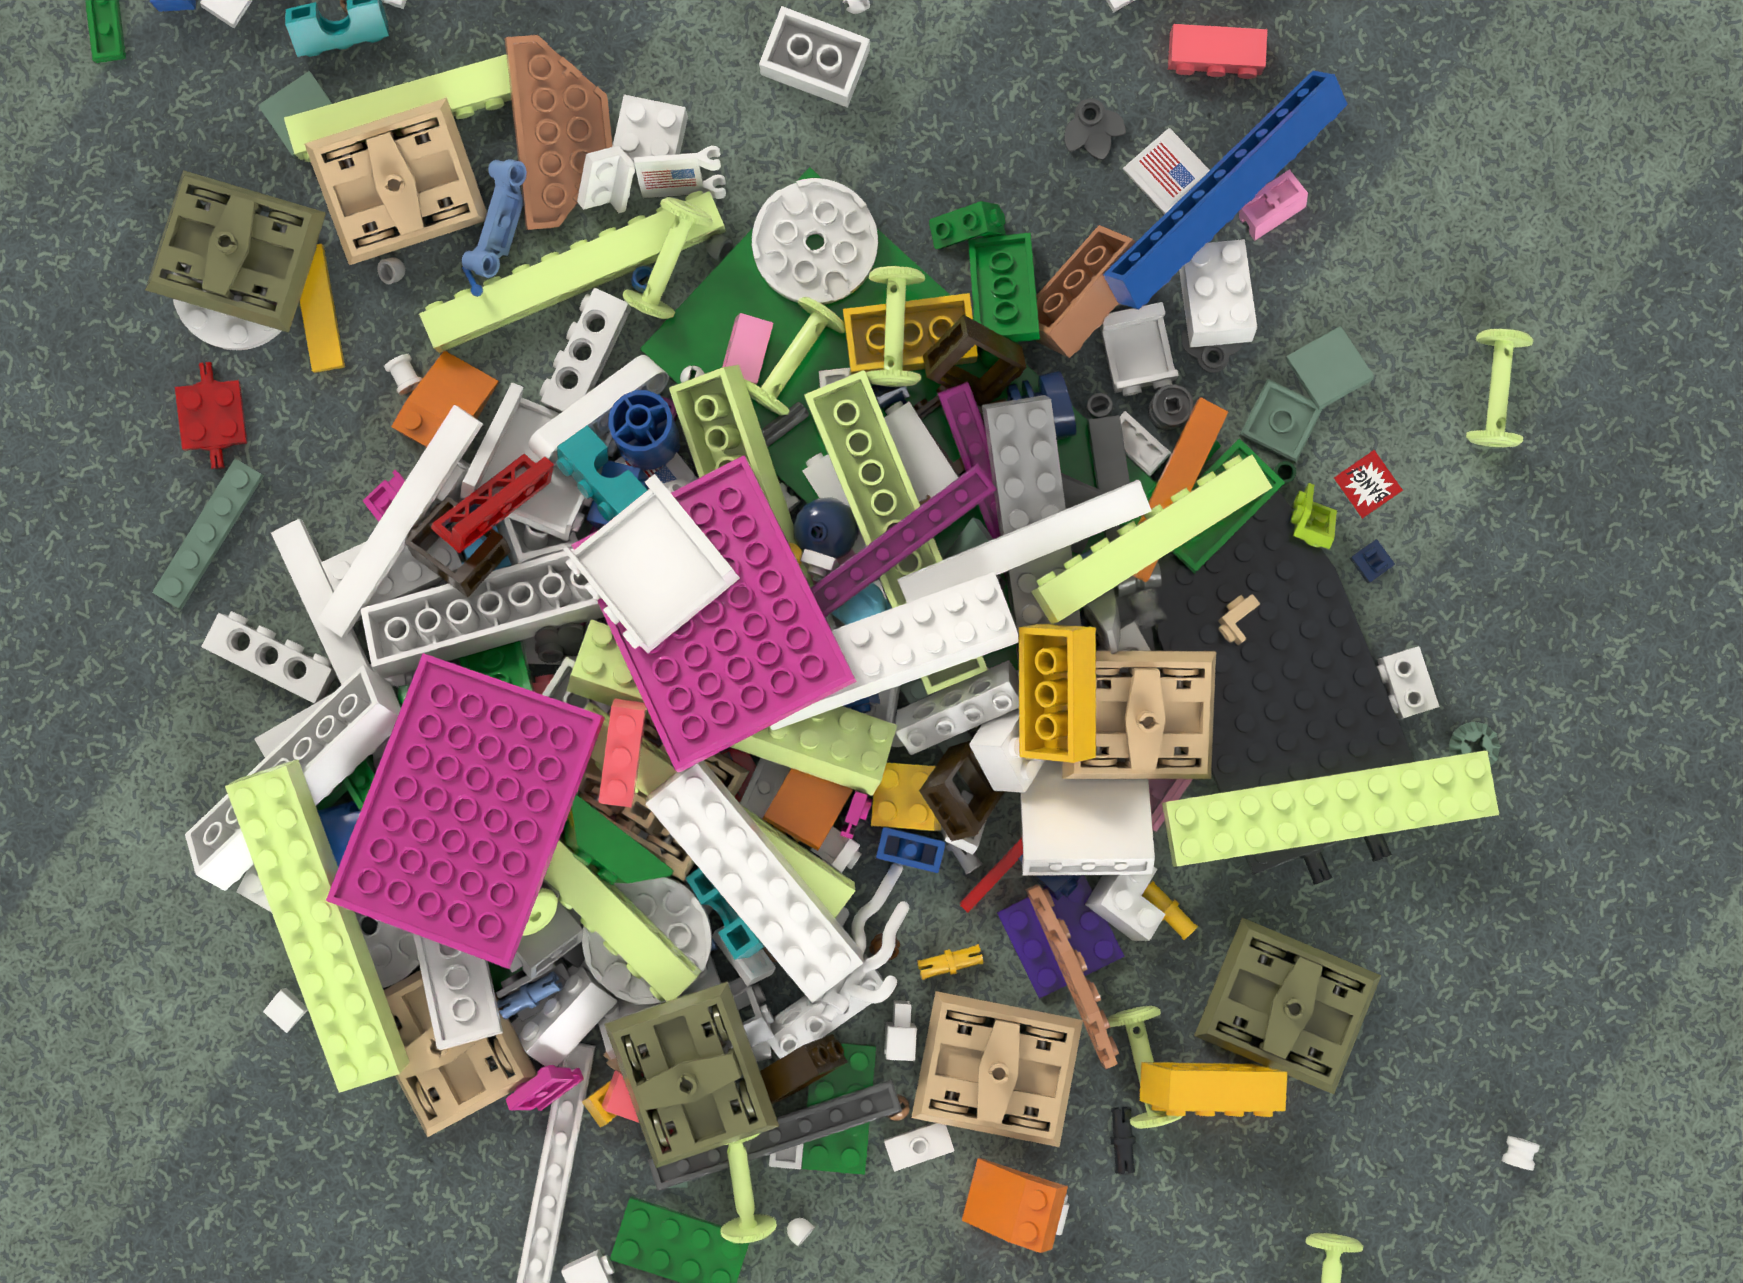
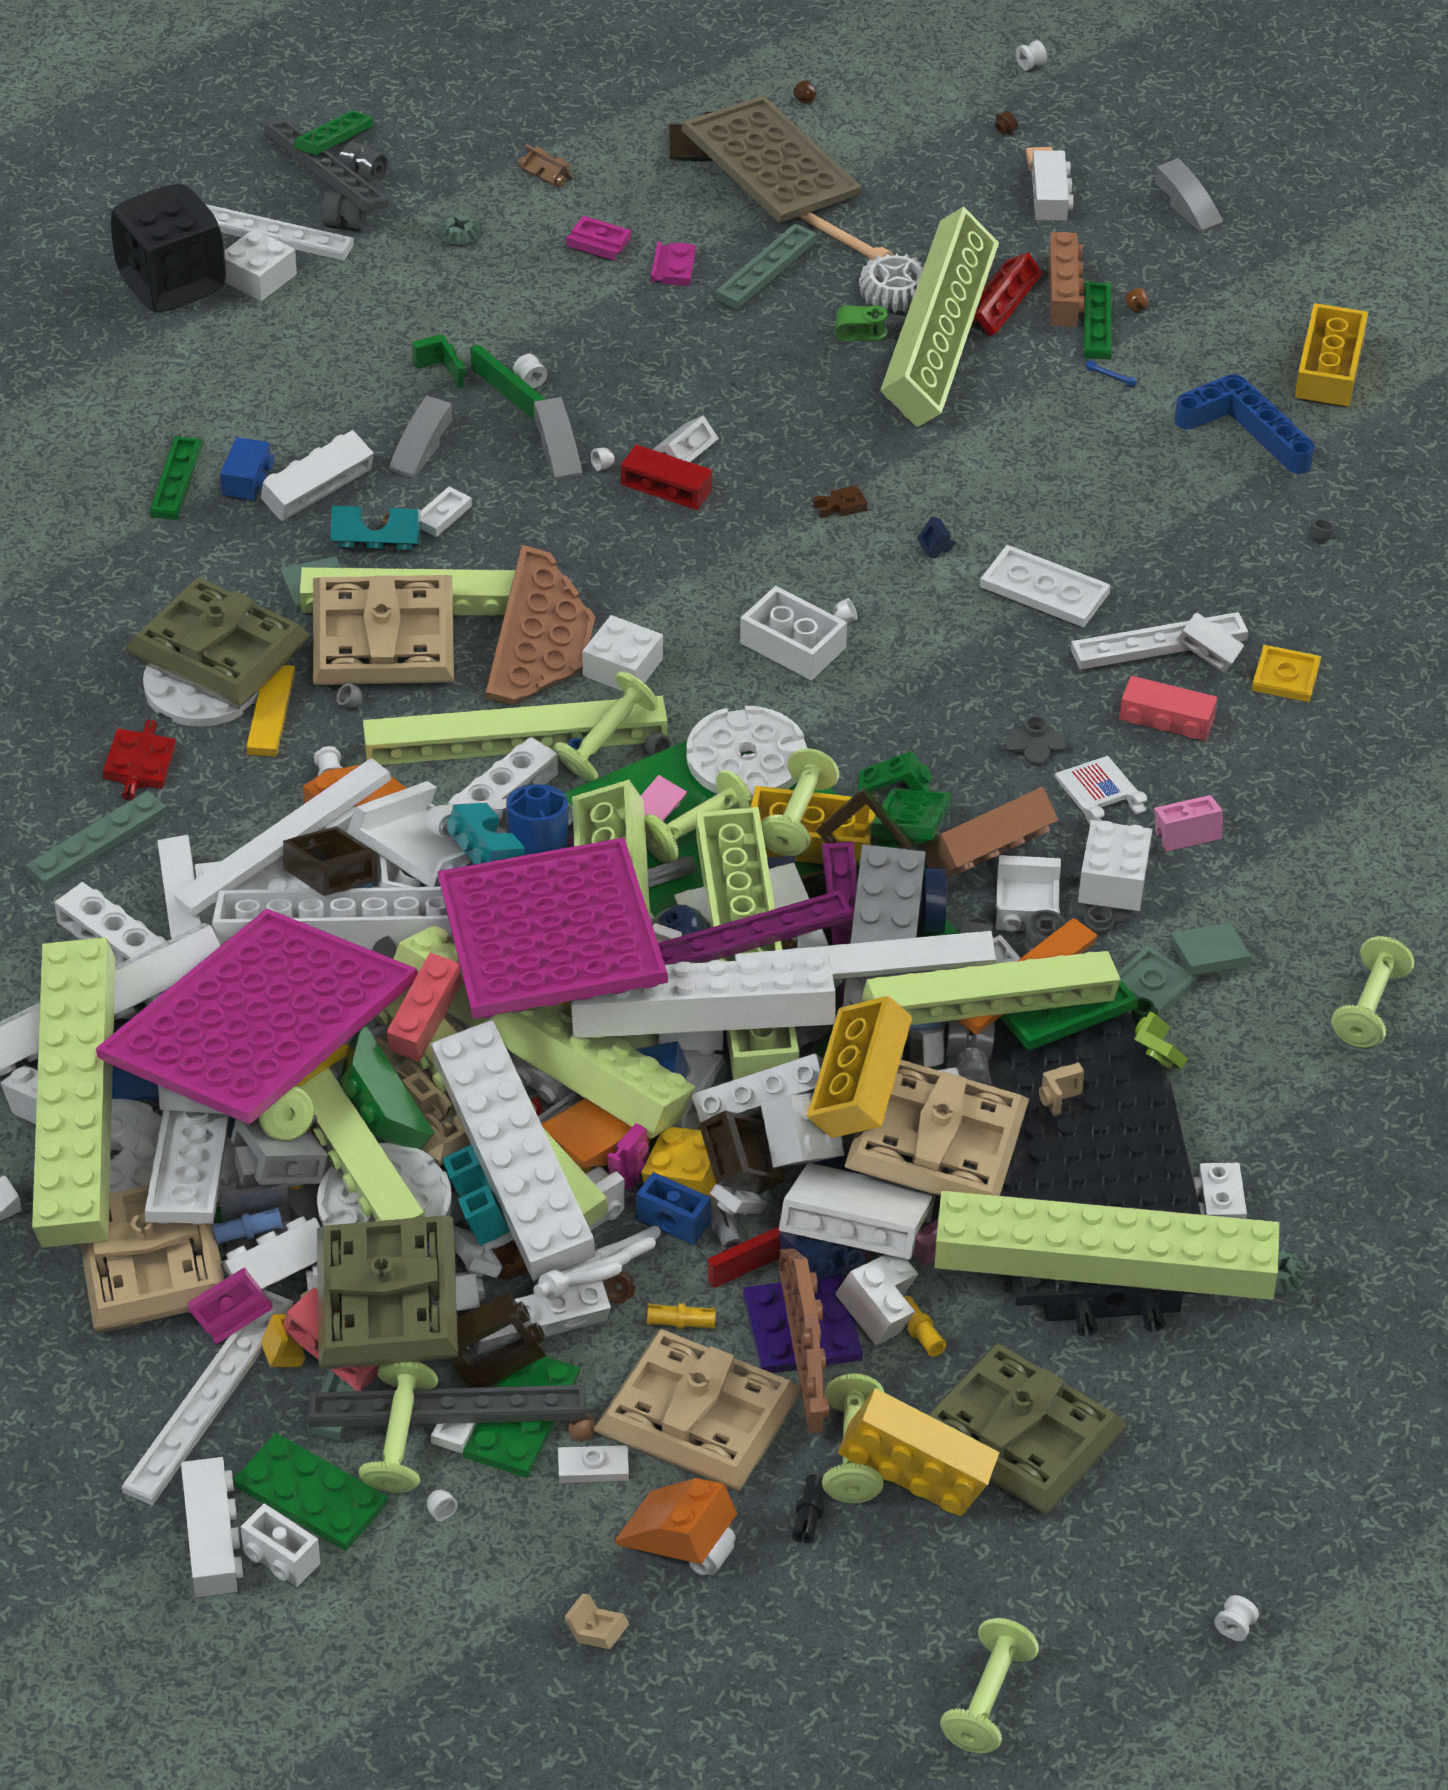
camera: 15 degrees right, 40 degrees down
(476, 290) = (423, 707): blue hinge -> none
(493, 508) = (381, 830): red fence -> none
(500, 218) = (466, 677): medium blue plate -> none
(606, 179) = (571, 666): white bracket -> none
(651, 567) = (510, 884): white panel -> none
(679, 174) = (641, 664): white flag -> none
(900, 1033) = (608, 1353): white piece -> none
(1225, 189) = (1141, 783): blue brick -> none
(1368, 484) = (1226, 1049): sticker -> none
(1372, 561) = (1212, 1102): dark blue tile -> none

